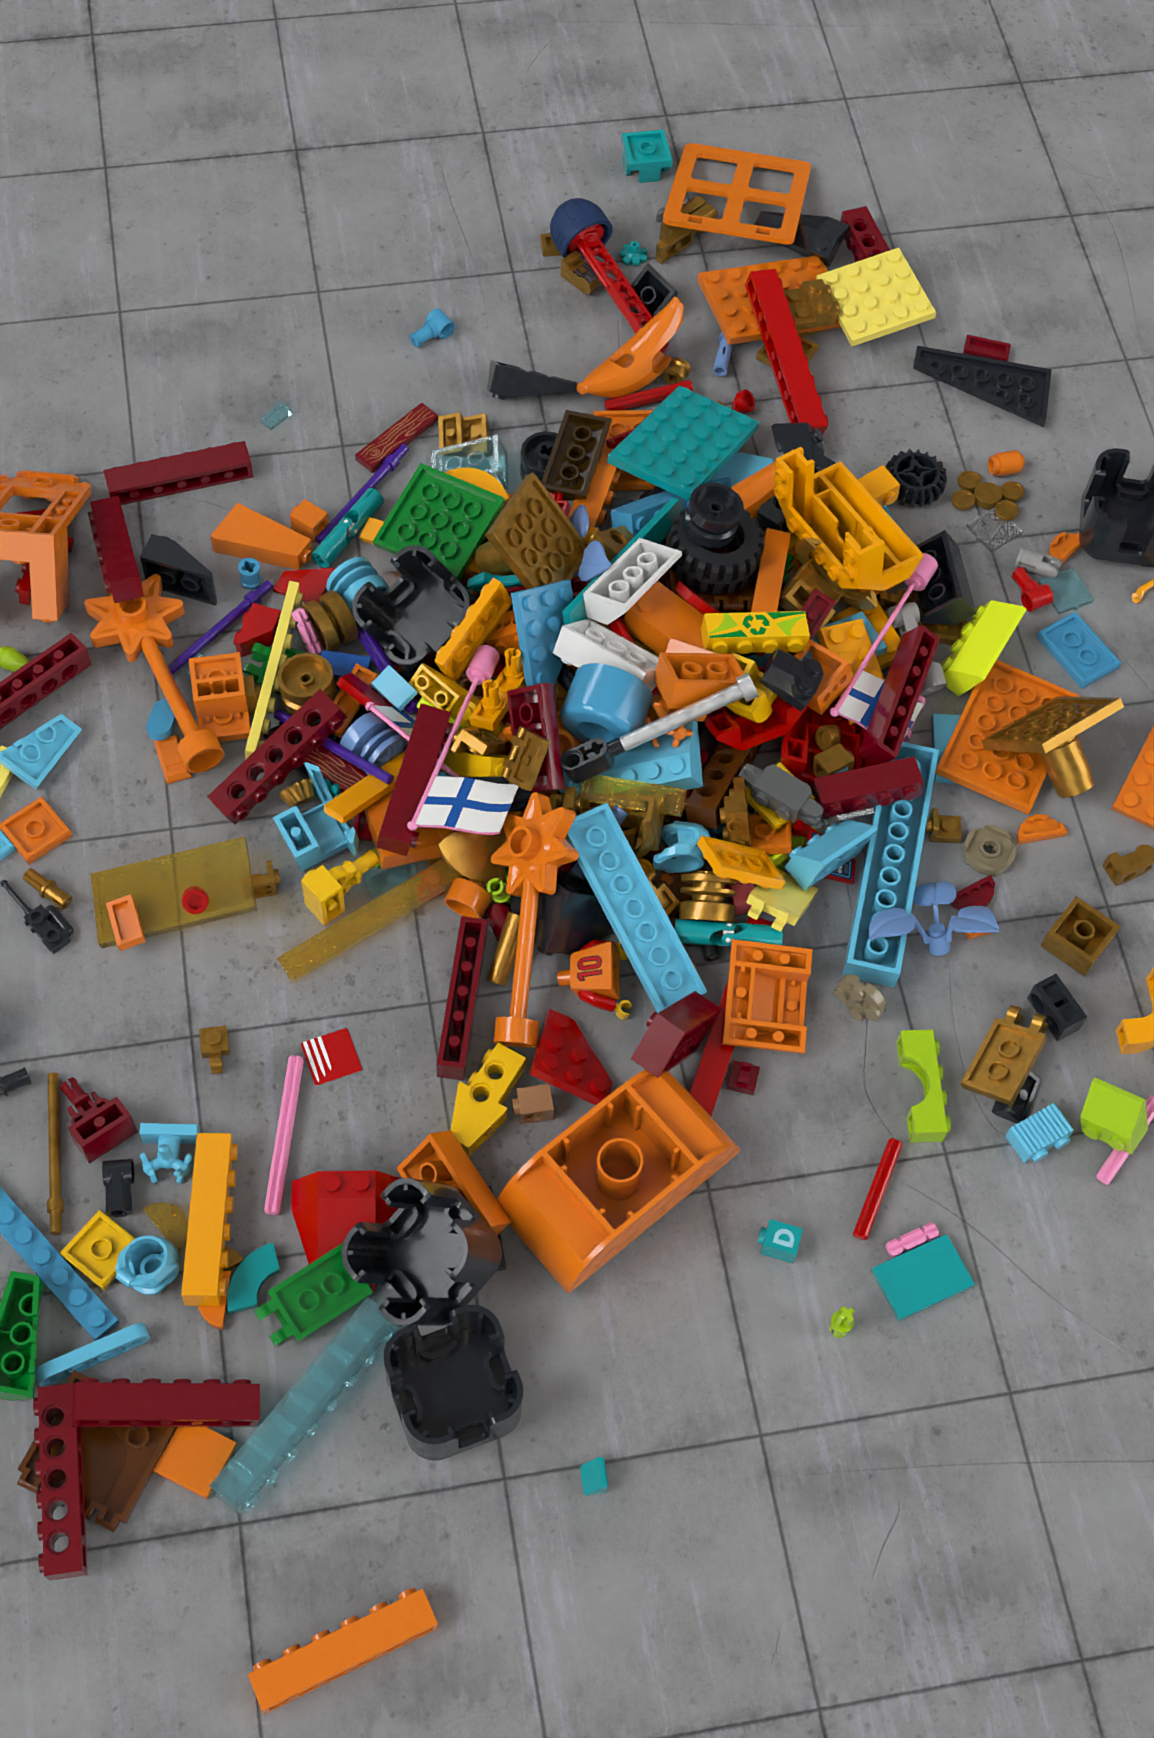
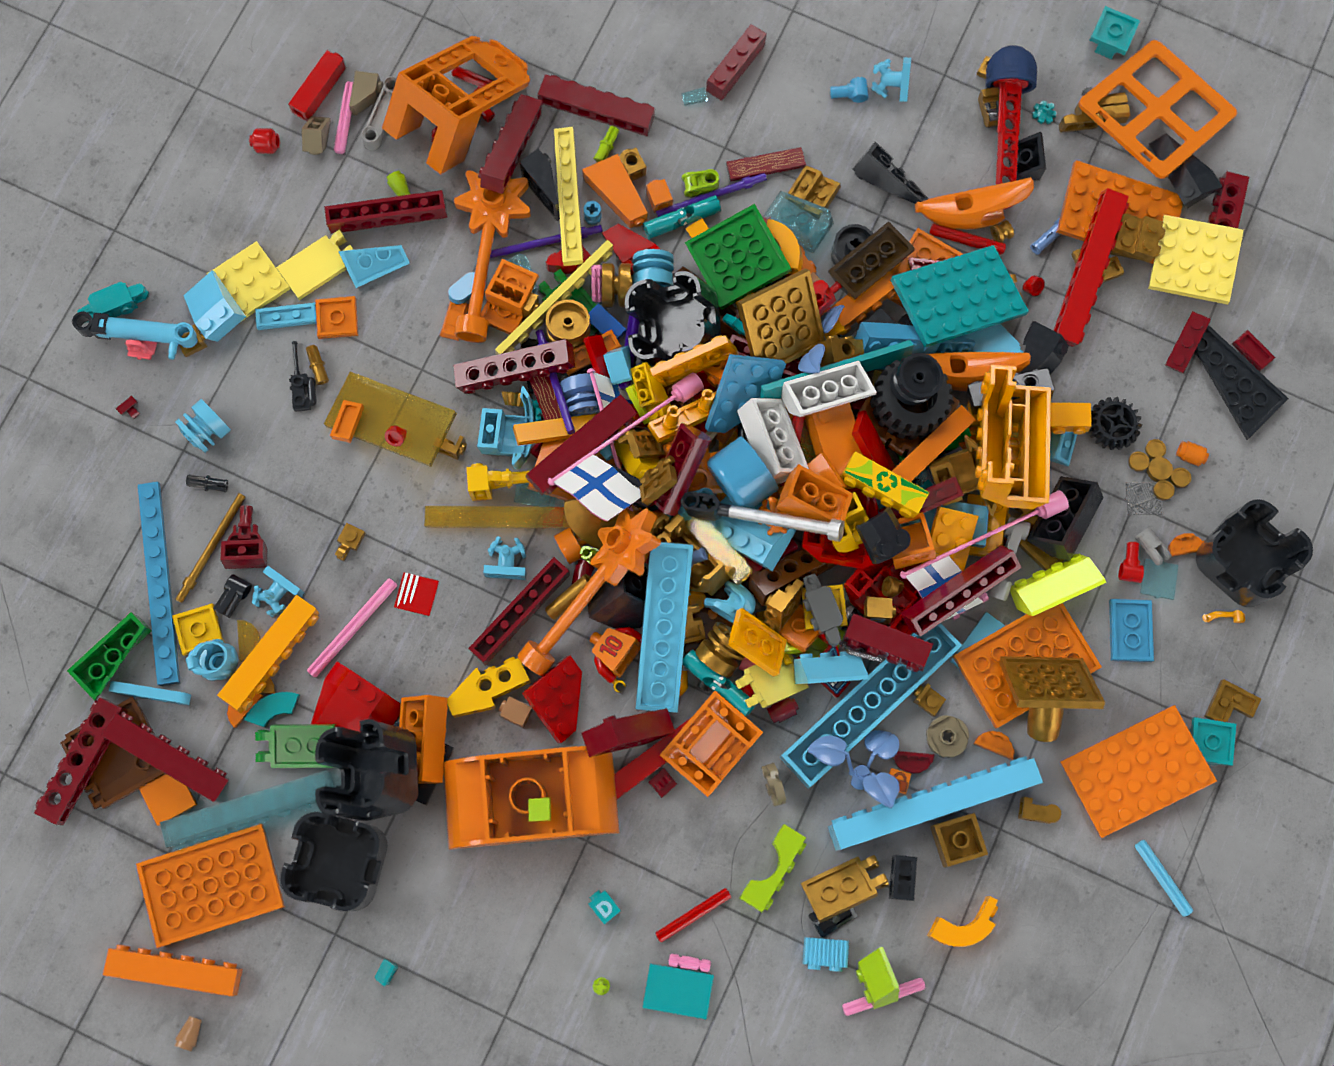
camera: 35 degrees right, 15 degrees up
(217, 503) = (607, 144): none -> lime axle
(225, 578) = (568, 196): none -> light yellow plate
(260, 502) = (635, 171): none -> pearl gold brick
(297, 361) = (736, 62): none -> dark red brick
(317, 1523) = (210, 885): none -> orange plate
(342, 485) = (699, 183): none -> lime piece
(412, 966) = (505, 561): none -> medium azure piece
(414, 1711) = (188, 1034): none -> medium nougat cone
(469, 293) = (892, 78): none -> medium azure piece
(648, 1159) = (540, 809): none -> lime slope
(810, 926) = (783, 710): none -> dark red brick
(924, 371) = (1187, 342): none -> dark red plate
(1027, 917) = (931, 805): none -> medium azure brick

